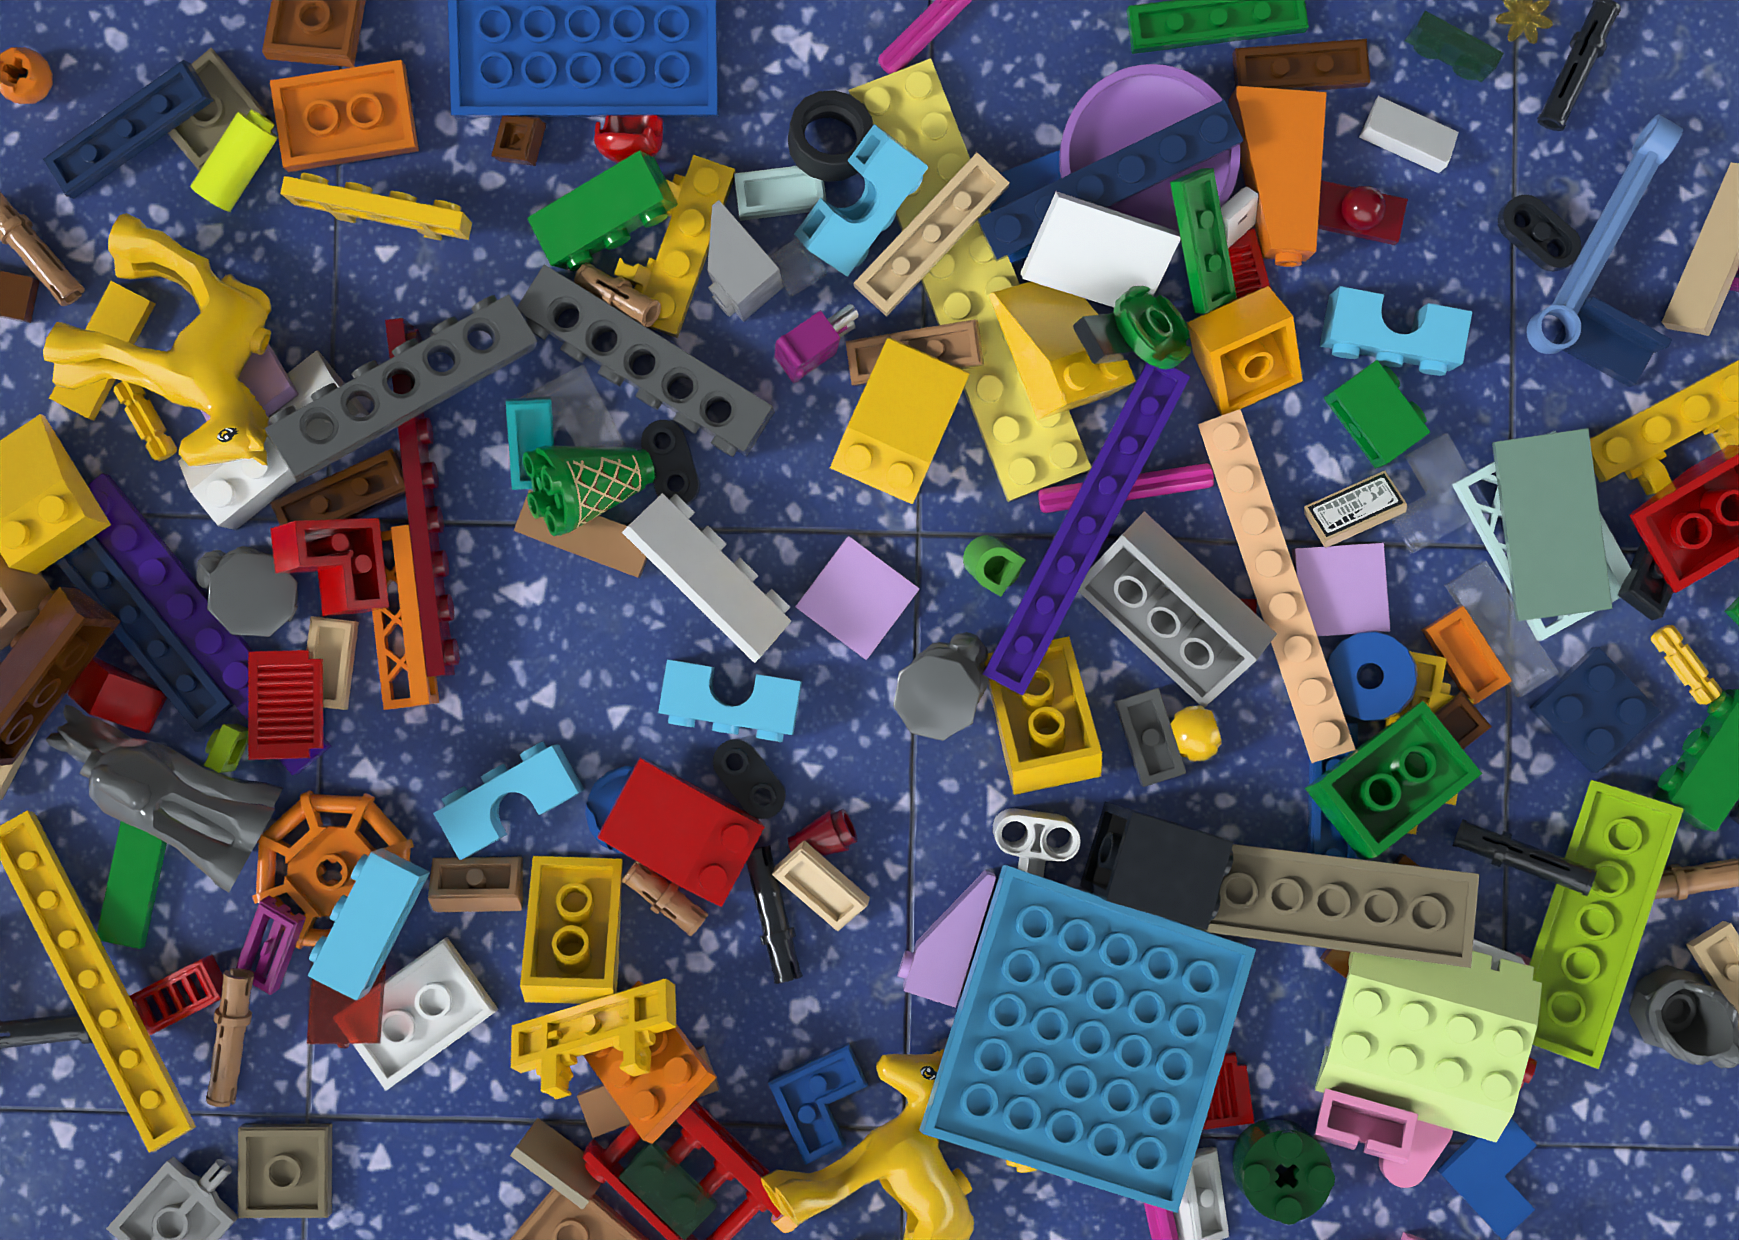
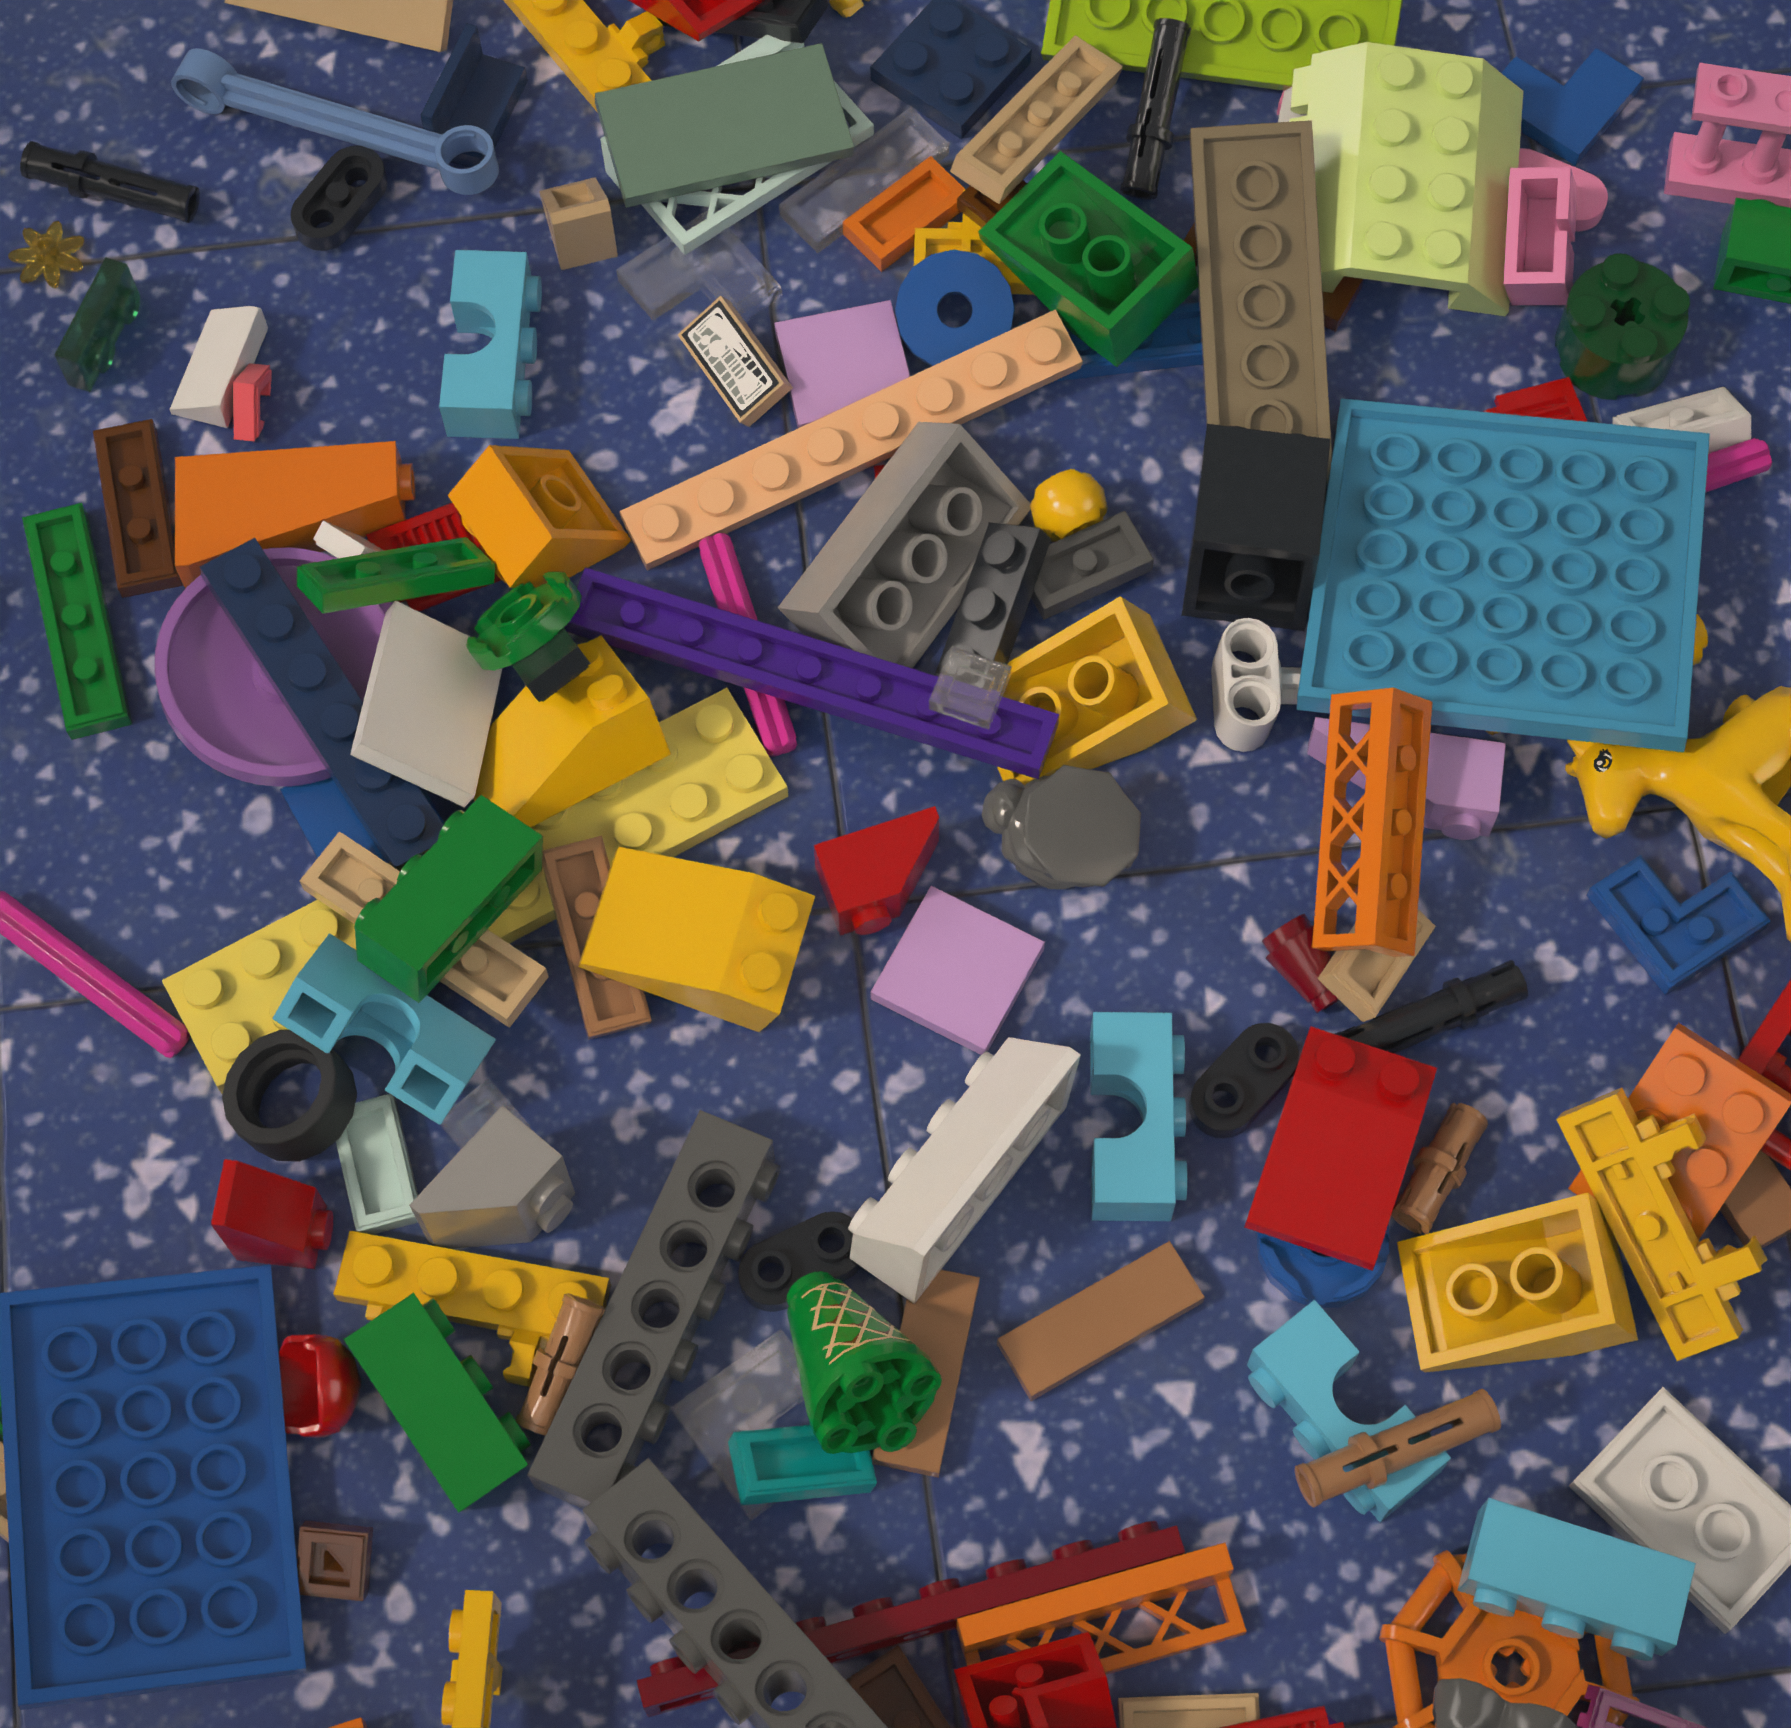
camera: 95 degrees left, 20 degrees down
(343, 1020) = (1723, 1617): clear red piece -> none
(465, 825) = (1326, 1478): none -> medium nougat pin
(476, 884) = (1489, 1463): medium nougat slope -> none
(599, 652) = (1100, 1320): none -> medium nougat tile
(744, 114) = (270, 1217): none -> red slope
(813, 342) = (601, 1071): magenta piece -> none
(895, 906) = (1385, 819): none -> orange fence
(933, 551) = (875, 870): none -> red slope
(941, 249) = (448, 897): none -> green brick
(992, 563) = (872, 798): bright green plate -> none
(1049, 634) = (970, 687): none -> clear tile
(1117, 662) = (998, 592): none -> black plate
(1361, 212) = (332, 400): dark red tile -> none
(1376, 150) = (247, 388): none -> coral tile
(1378, 414) = (604, 350): green brick -> none
(1495, 408) = (579, 223): none -> tan slope
(1520, 762) = (1036, 119): none -> tan plate

